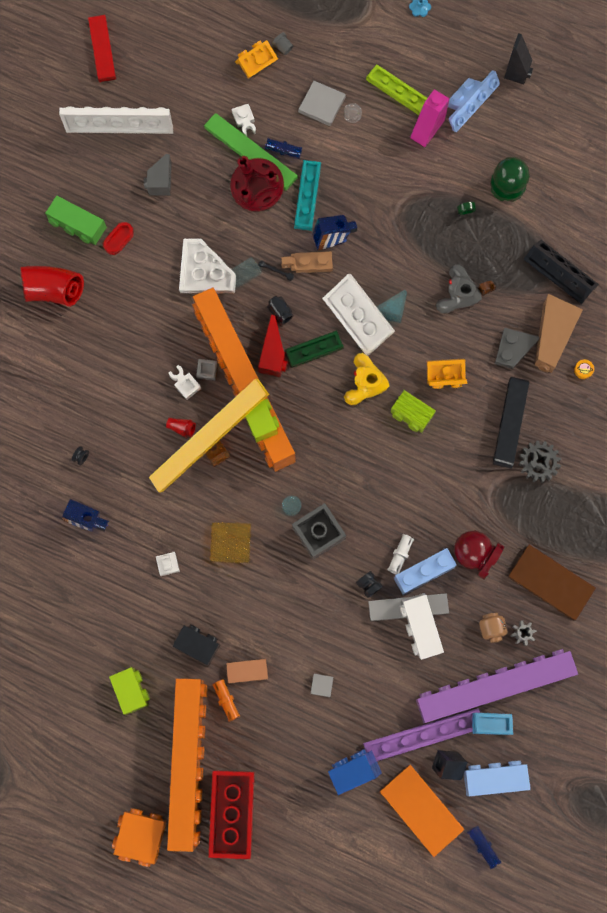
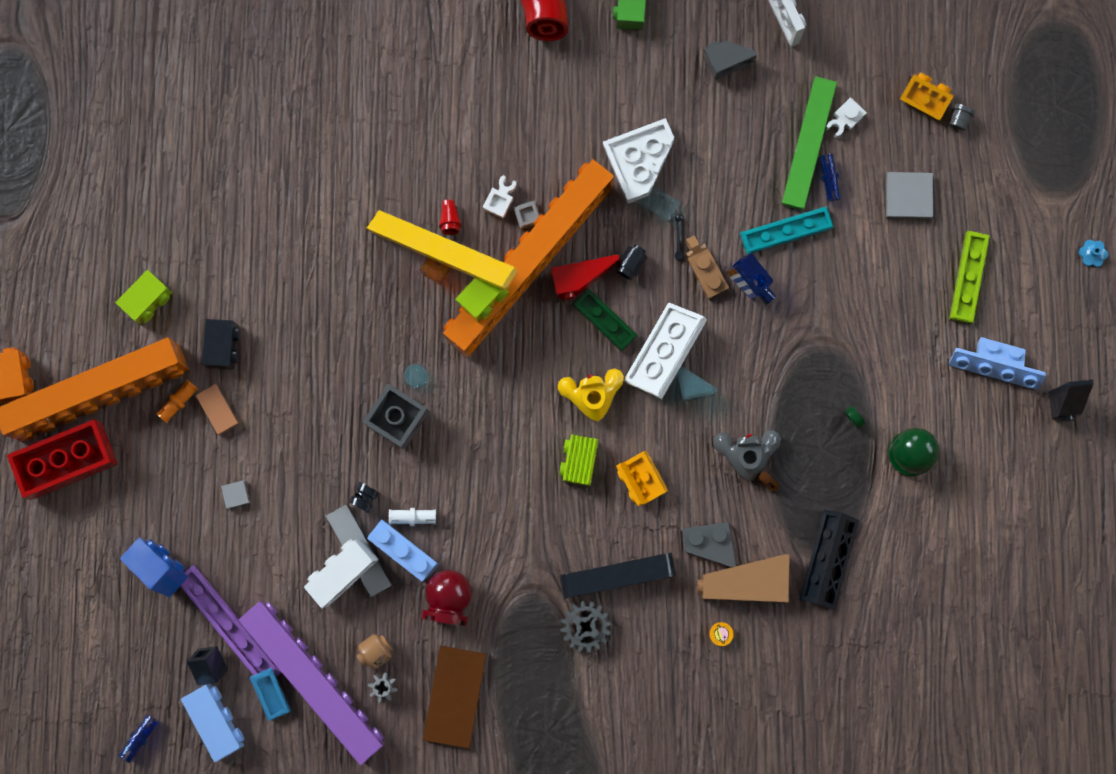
camera: 70 degrees right, 5 degrees up
(76, 512) = (302, 153): clear blue torso -> none
(80, 455) = (369, 127): black bush -> none
(118, 238) = (635, 48): red tile -> none
(167, 564) = (294, 274): white tile -> none
(230, 542) = (346, 329): clear yellow plate -> none
(256, 184) = (771, 168): dark red piece -> none
(352, 113) = (914, 235): clear tile -> none
(421, 810) = (150, 656): orange tile -> none
(430, 118) = (944, 326): dark pink slope -> none

